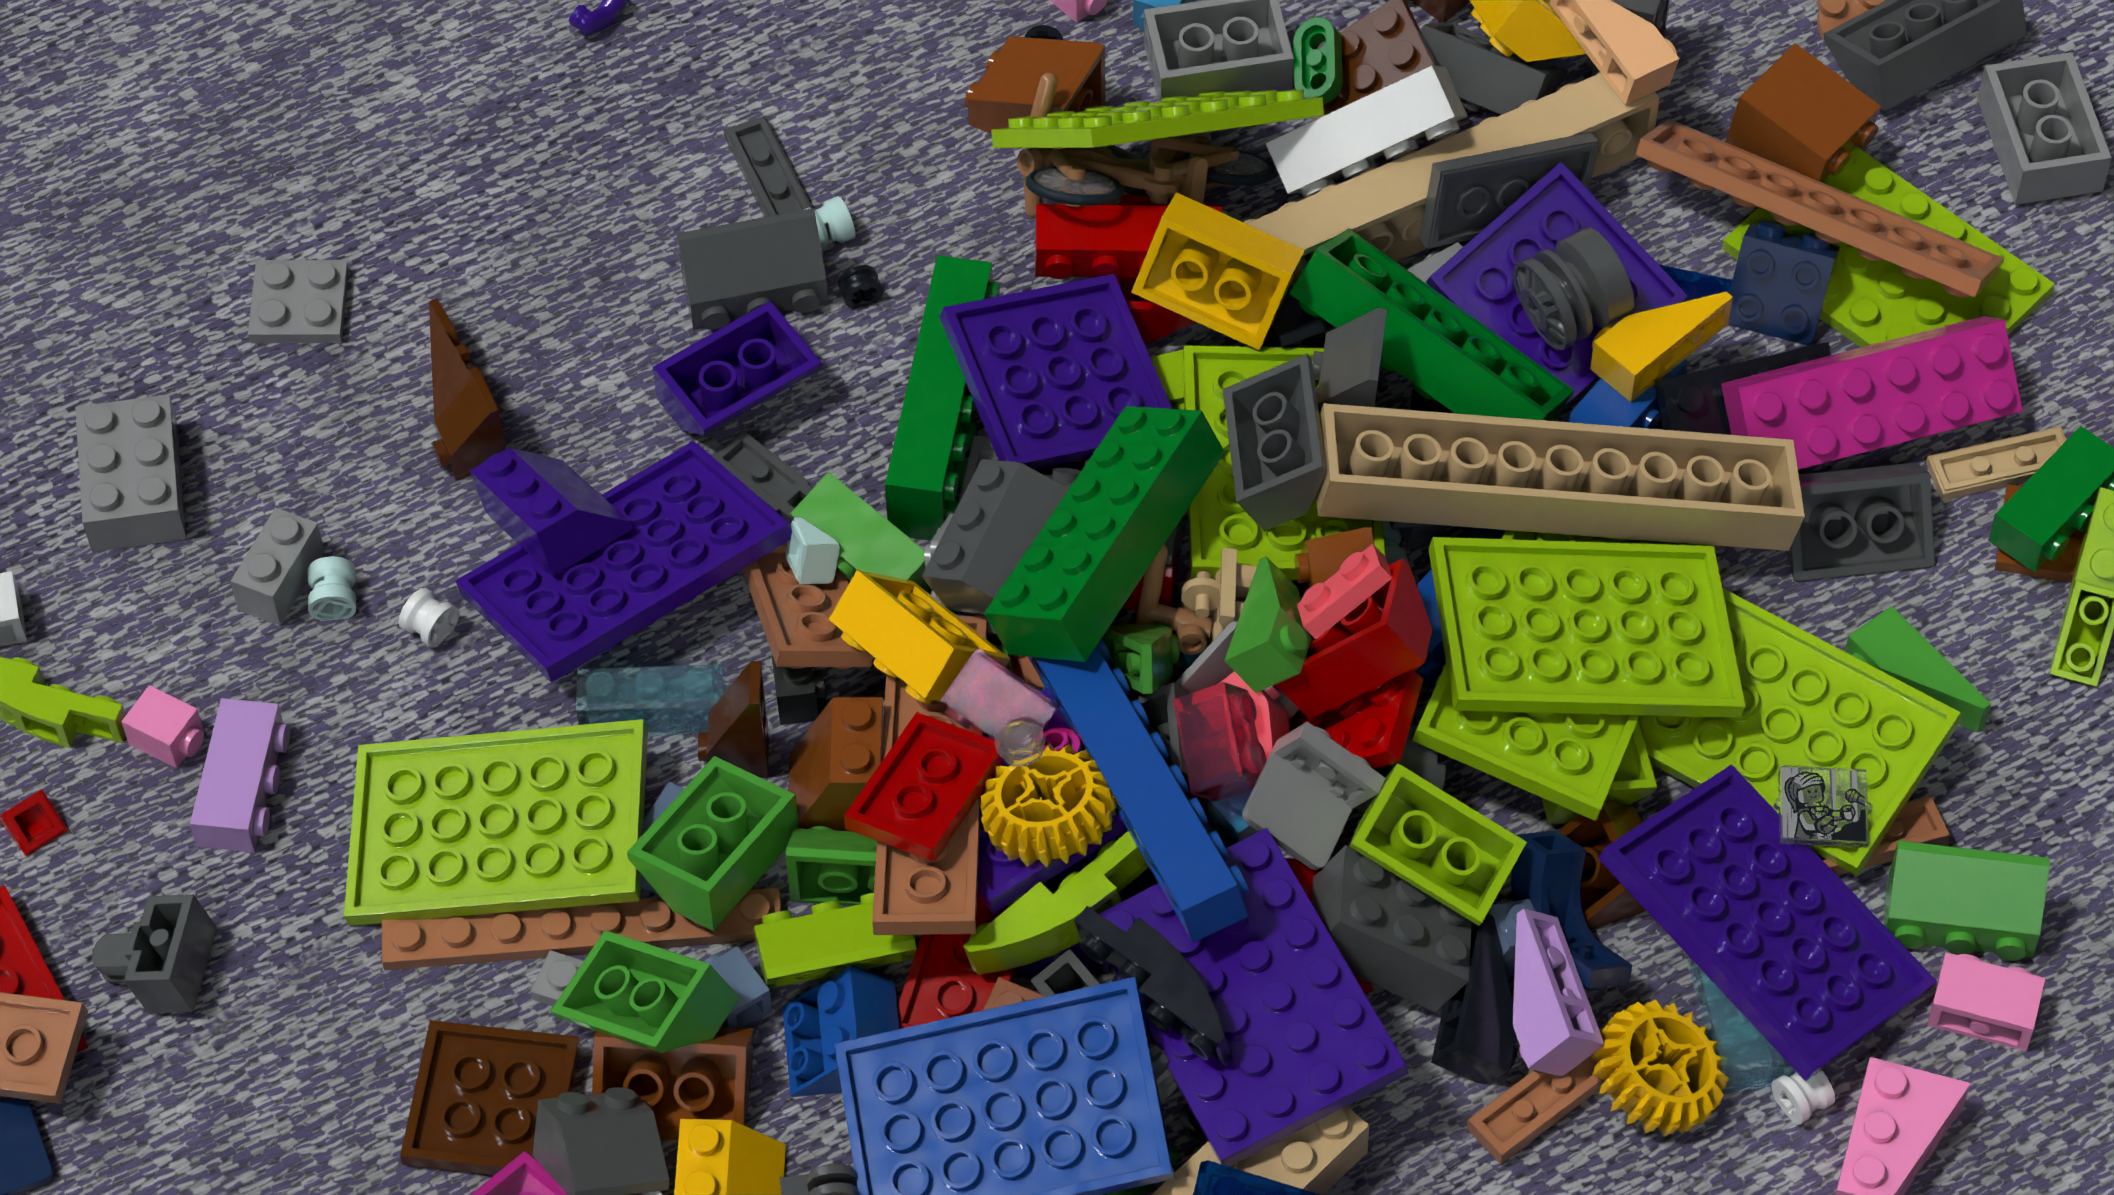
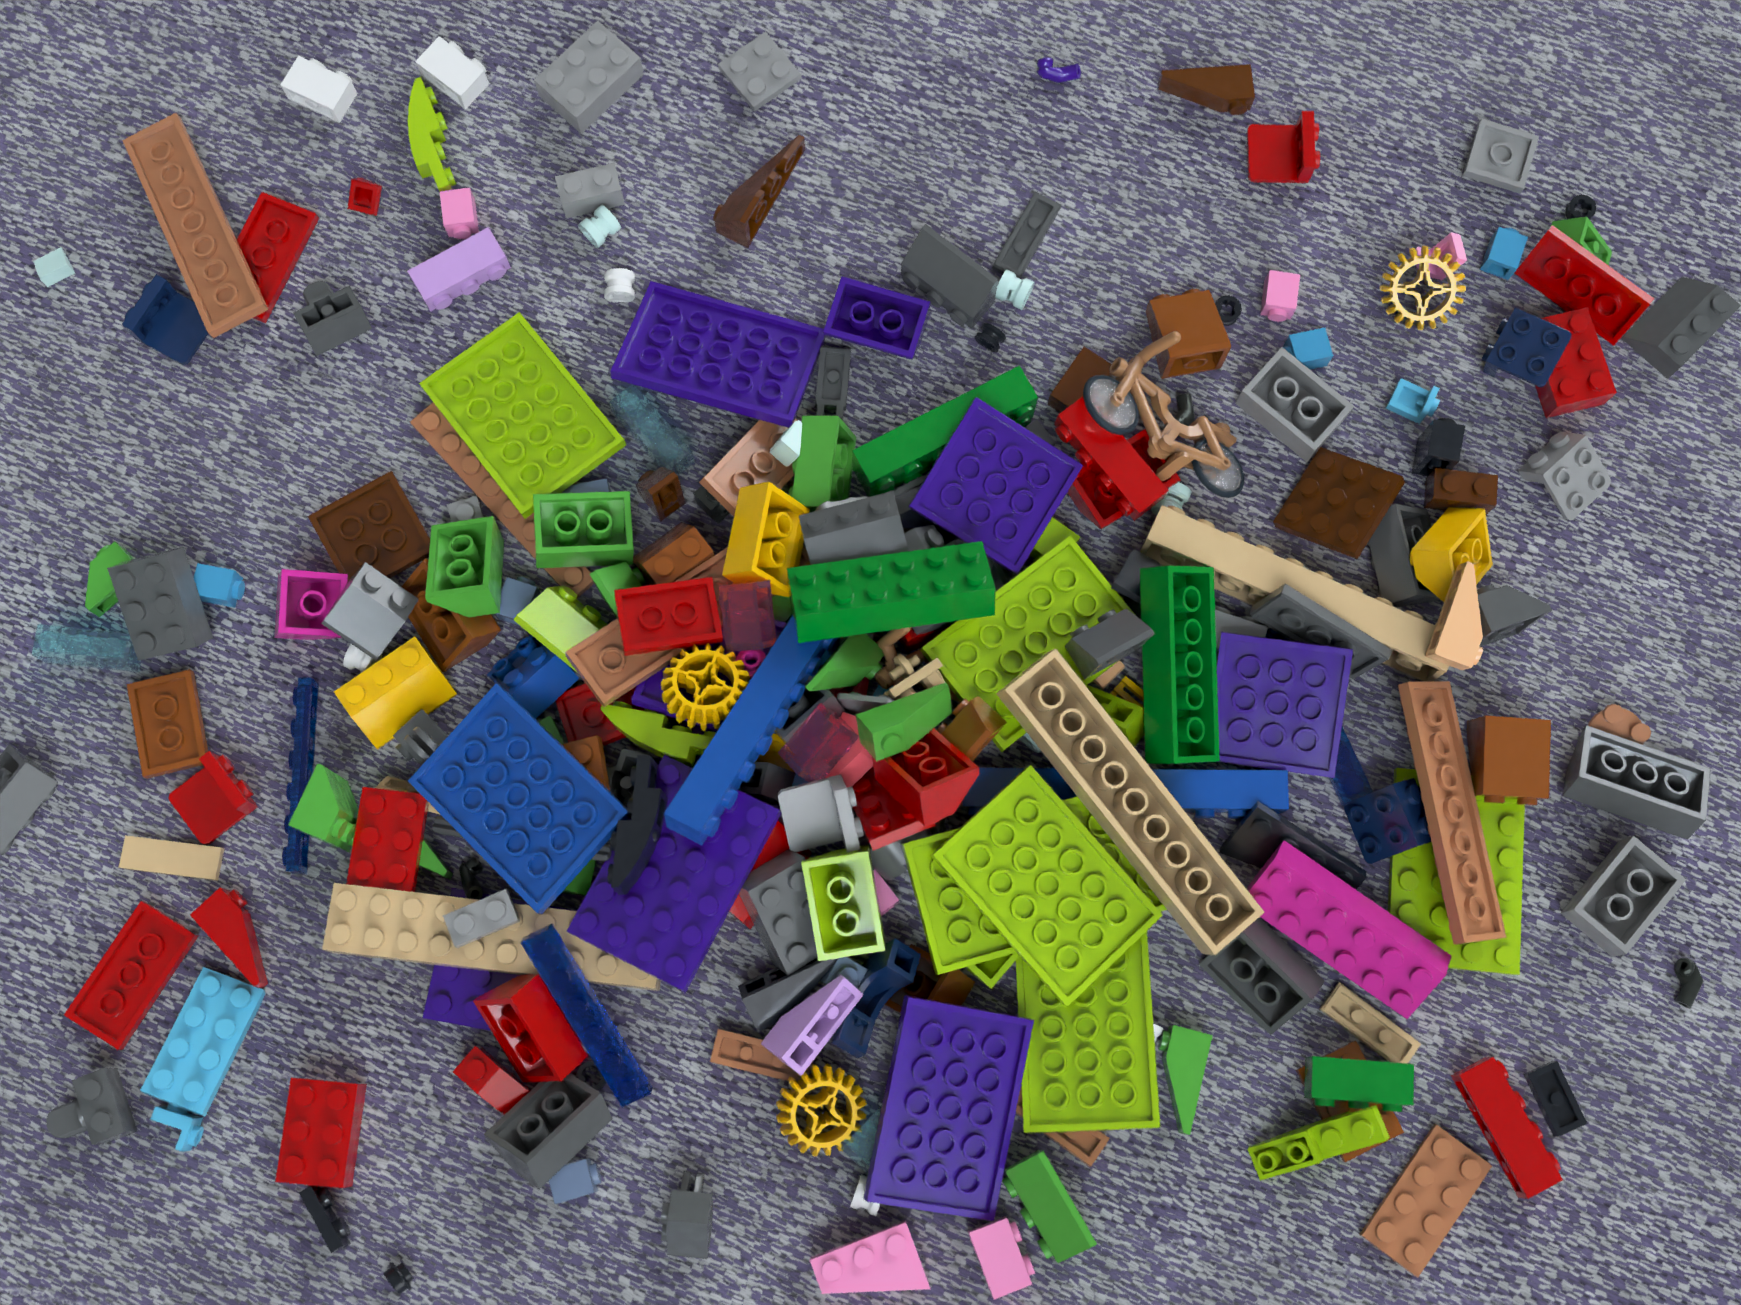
camera: 50 degrees right, 20 degrees up
(546, 507) = (723, 291): dark purple slope -> none
(1003, 232) = (1073, 381): none -> reddish brown brick
(1020, 743) = (724, 646): clear plate -> none
(1156, 120) = (1194, 414): lime plate -> none
(1217, 271) = (1120, 520): yellow slope -> none
(1276, 442) = (1023, 634): dark grey slope -> none
(1318, 65) = (1323, 464): green plate -> none
(1344, 591) = (942, 748): coral plate -> none
(1367, 129) = (1291, 528): white brick -> none
(1573, 288) = (1270, 718): dark grey wheel -> none
(1656, 341) = (1277, 784): yellow slope -> none
(1823, 806) = (1044, 1089): piece -> none

